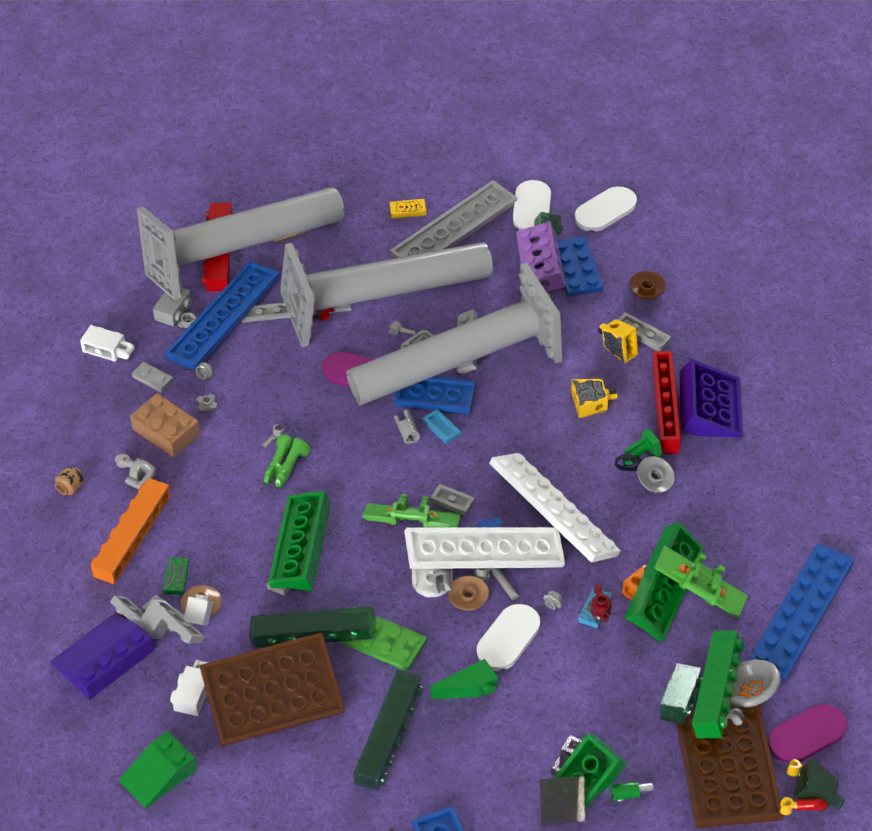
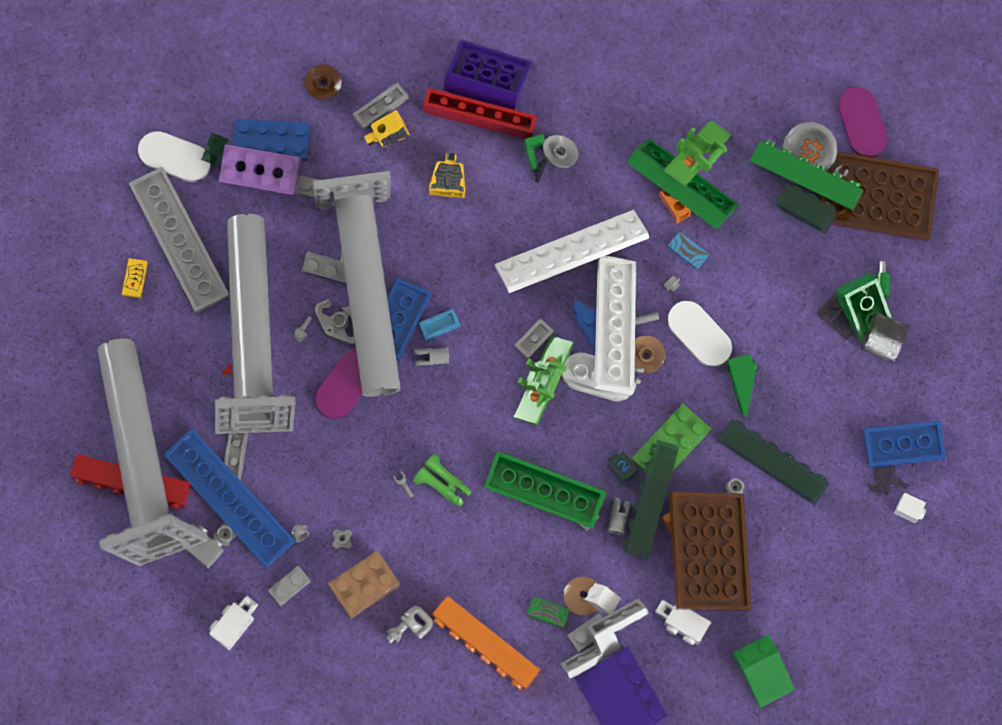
camera: 80 degrees left, 25 degrees up
(69, 481) = (406, 692): medium nougat head -> none
(286, 606) = (617, 519): none -> light grey hinge
(341, 597) = (621, 467): none -> brick
(351, 699) = (735, 482): none -> light grey plate
(601, 604) = (696, 244): dark red piece -> none
(605, 209) = (201, 87): white tile -> none
(803, 608) = (738, 81): blue plate -> none
(814, 788) = (923, 135): clear green torso -> none

